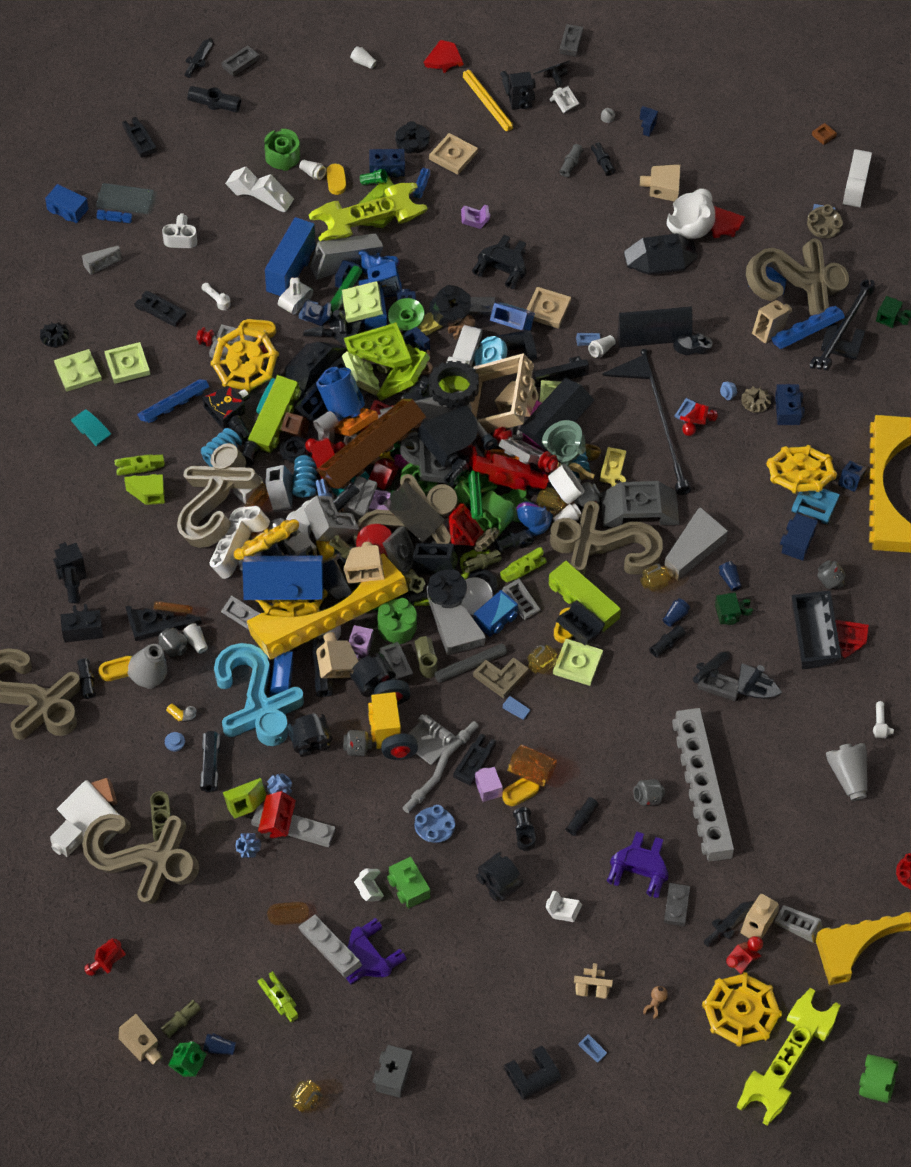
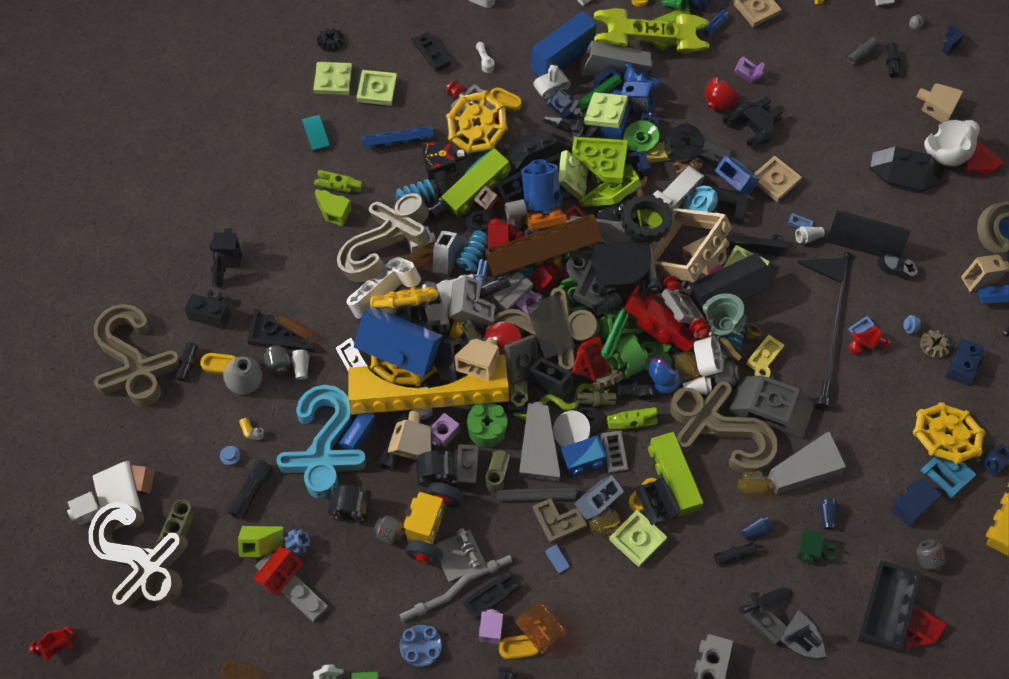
camera: 25 degrees right, 5 degrees up
(248, 845) = (238, 589): medium blue gear -> none
(447, 578) = (539, 404): black plate -> none
(461, 249) = (720, 95): none -> red cylinder
(528, 640) = (599, 497): none -> sand blue brick

